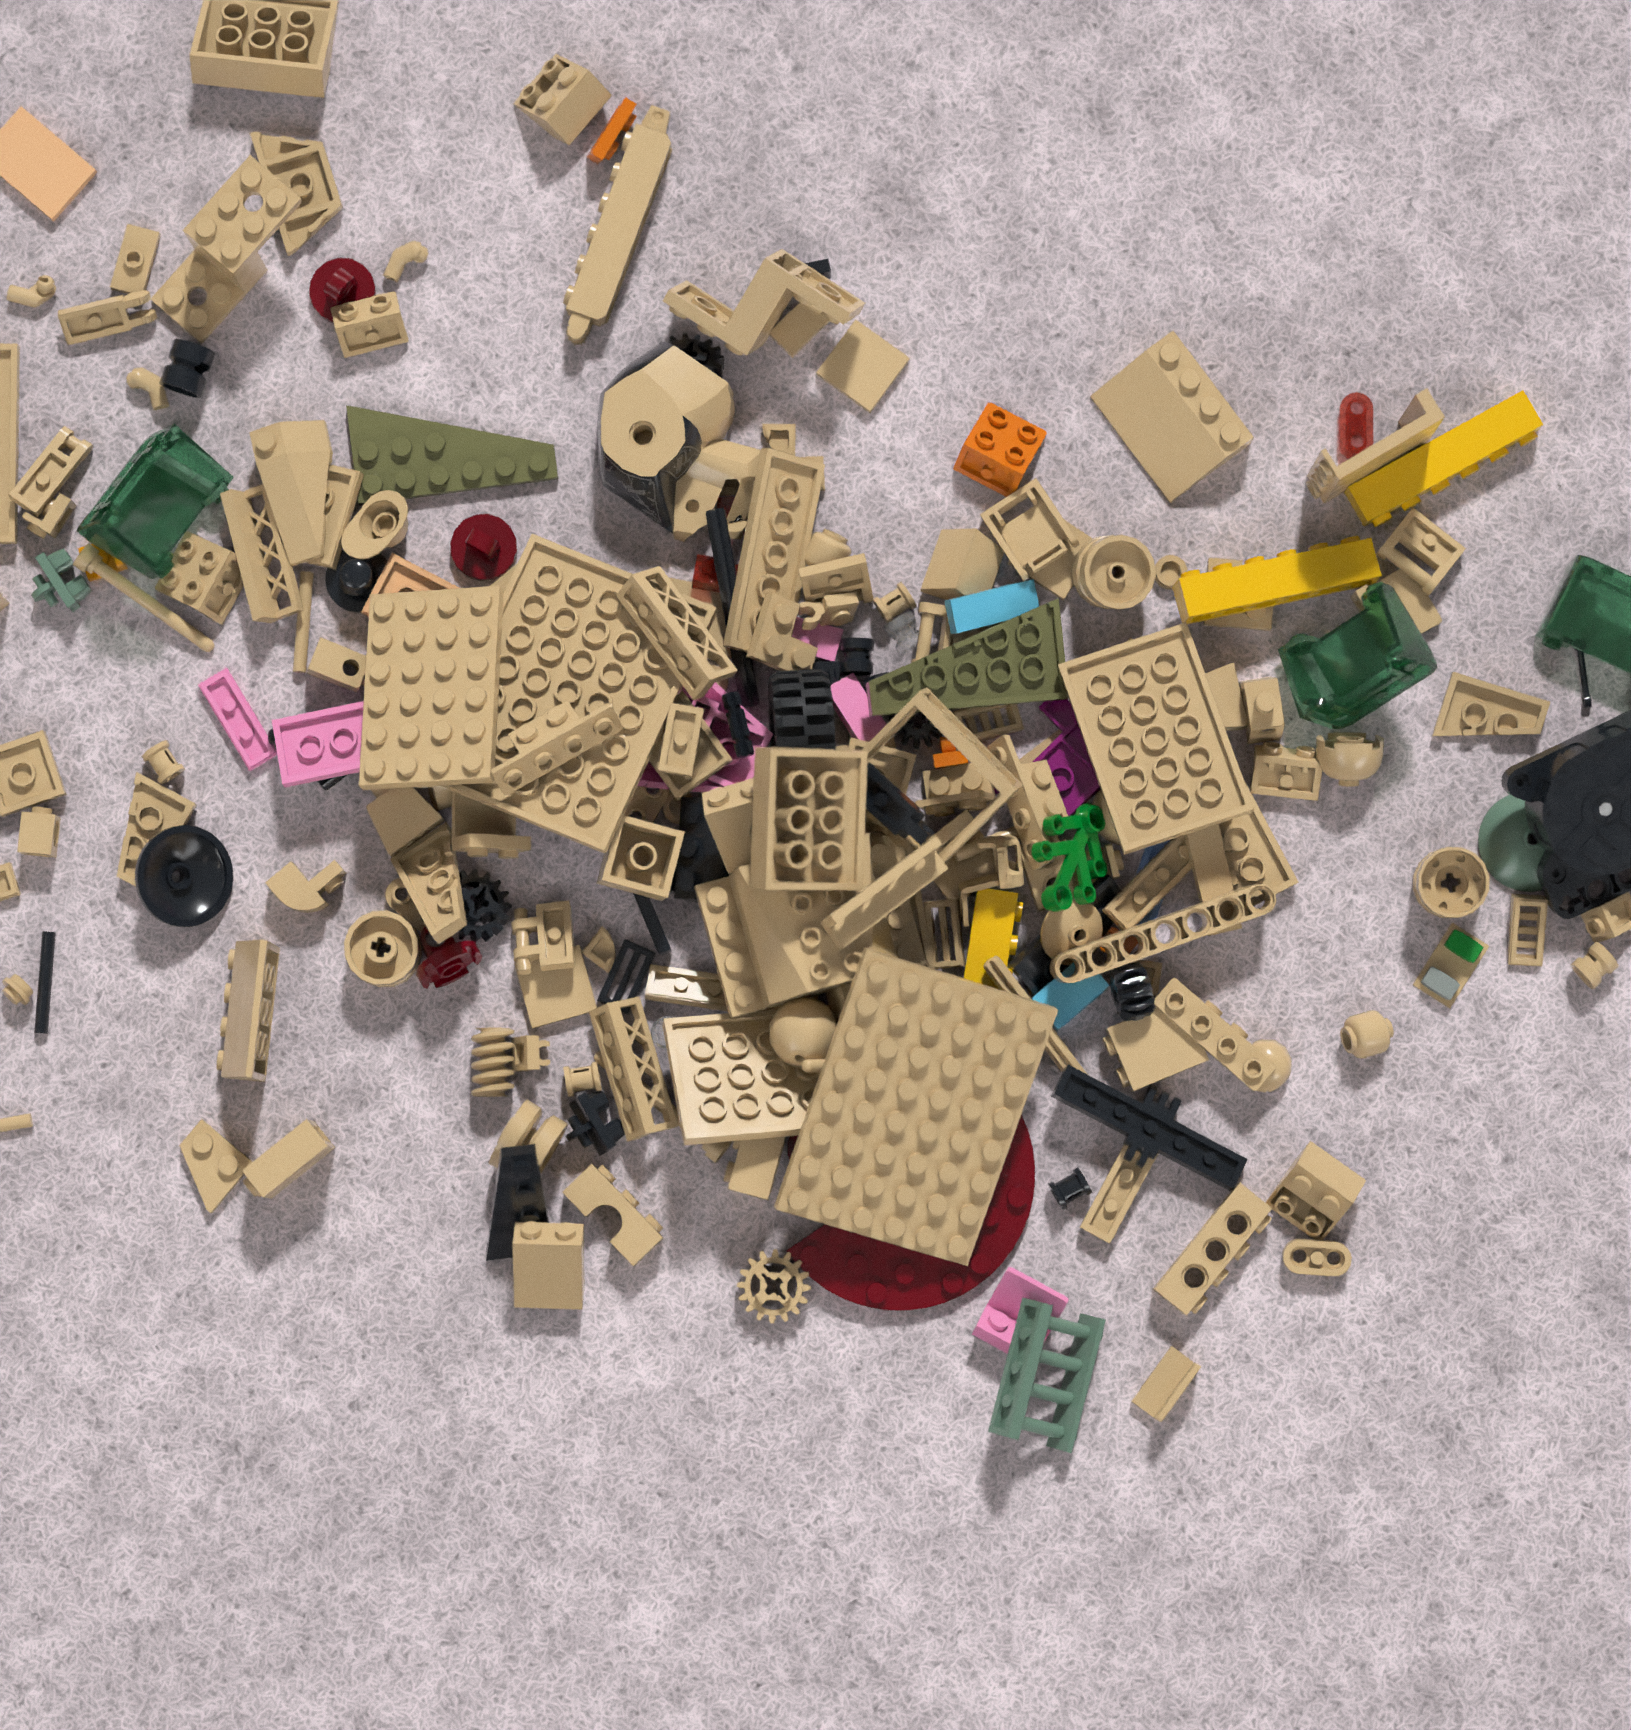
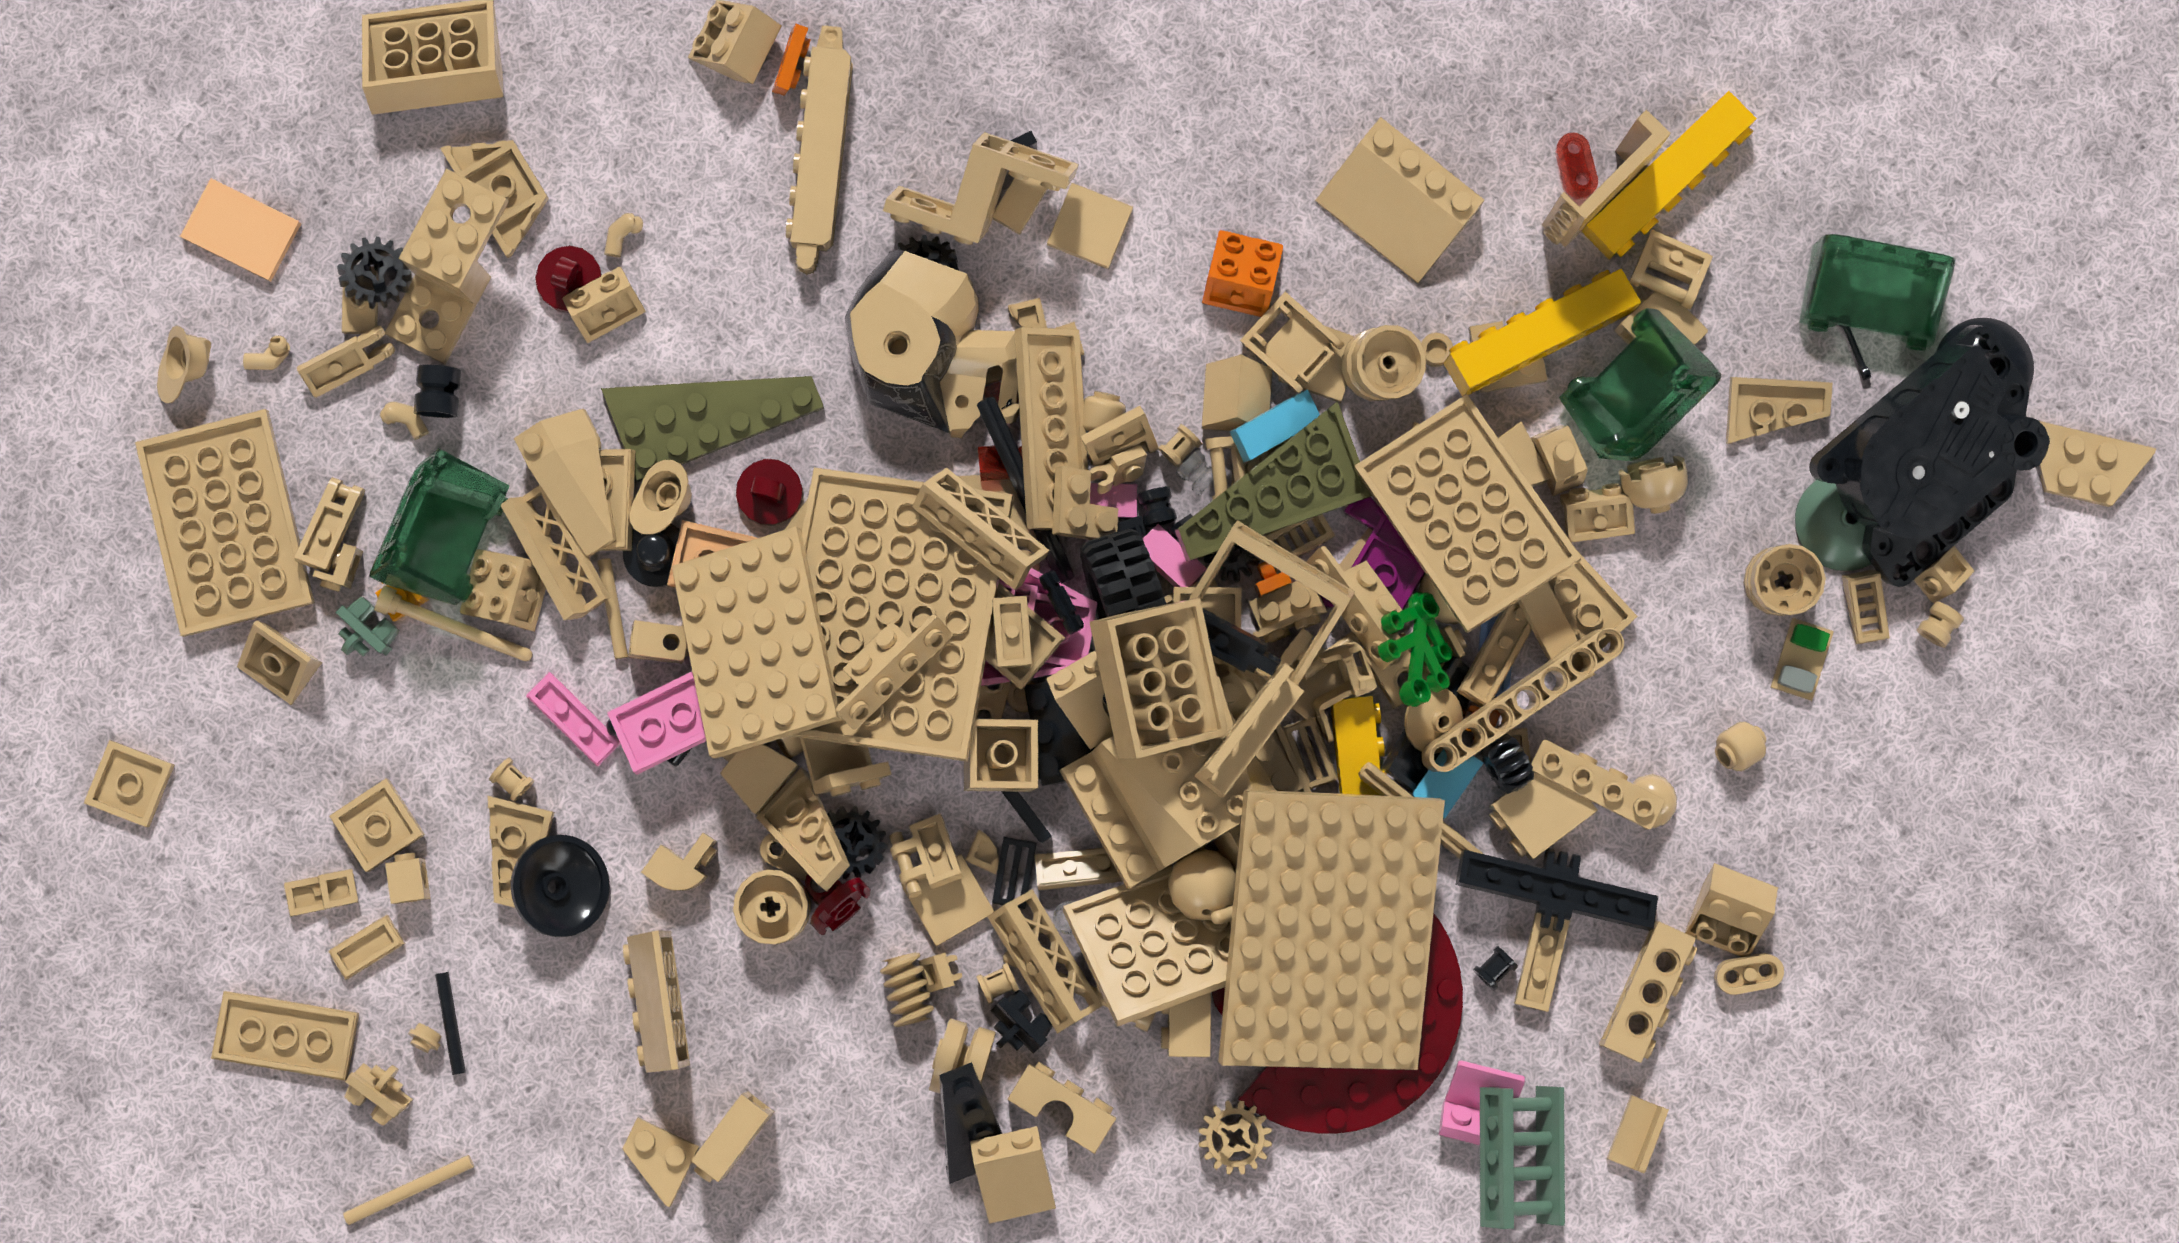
camera: 20 degrees left, 0 degrees up
(140, 238) = (360, 276): none -> black gear

